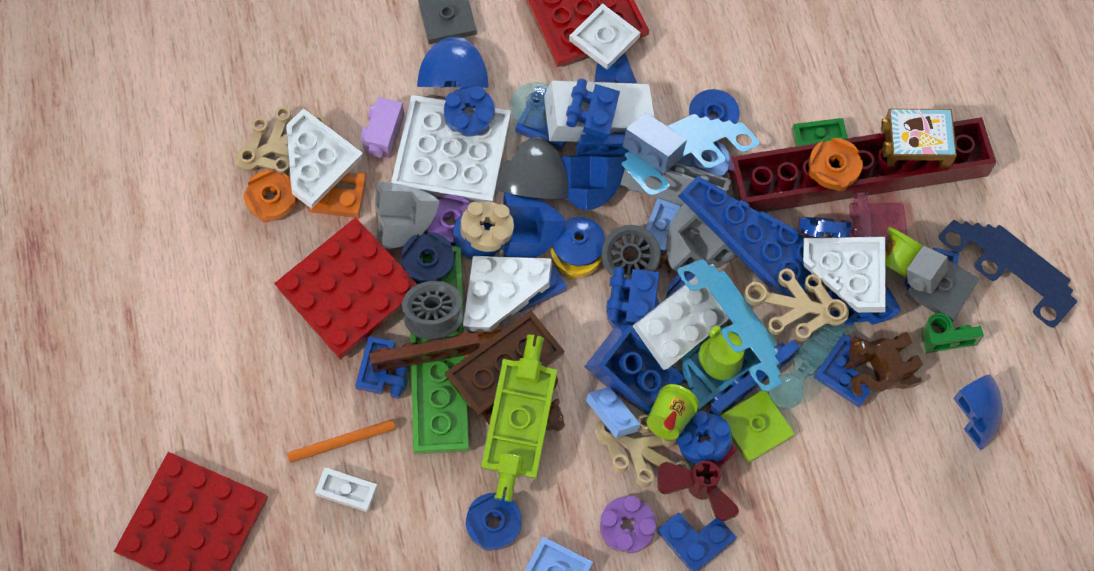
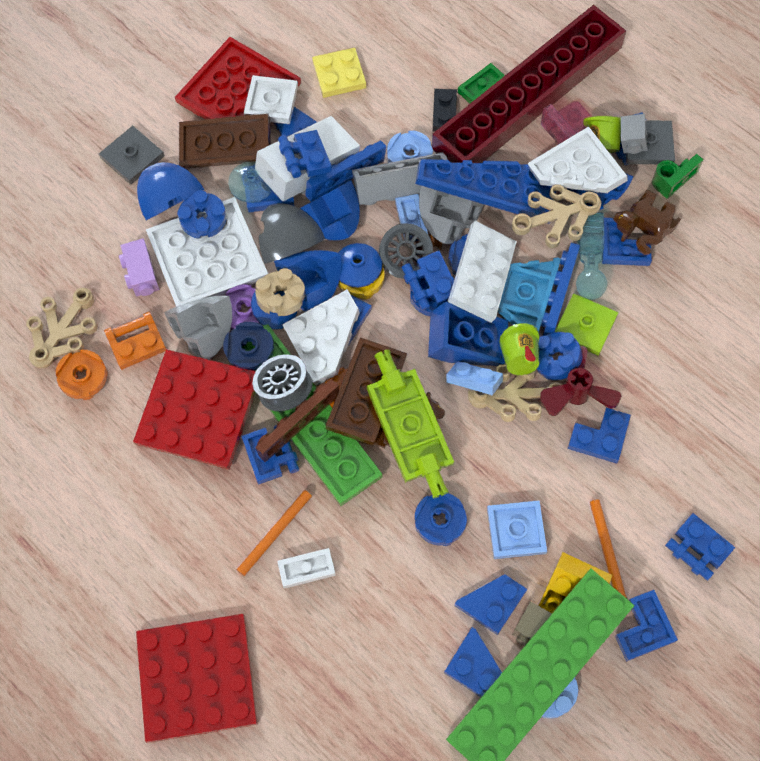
camera: 30 degrees left, 0 degrees up
(316, 157) = (101, 320): white plate -> none
(535, 50) = (223, 140): none -> reddish brown plate
(624, 540) = (543, 442): medium lavender plate -> none
(654, 143) = (369, 154): brick -> none
(691, 44) = (339, 72): none -> light yellow plate
(700, 137) = (383, 145): medium azure piece -> none
(716, 103) = (392, 104): blue dish -> none
(718, 357) = (528, 283): lime hat -> none
(744, 320) = (530, 248): medium azure piece -> none
(770, 134) = (444, 107): none -> black plate
(817, 226) = (535, 147): blue plate -> none
(831, 177) = (511, 105): orange plate -> none
(919, 135) = (561, 39): panel -> none
(983, 407) = (738, 210): blue brick -> none
(1014, 255) = (682, 93): dark blue piece -> none

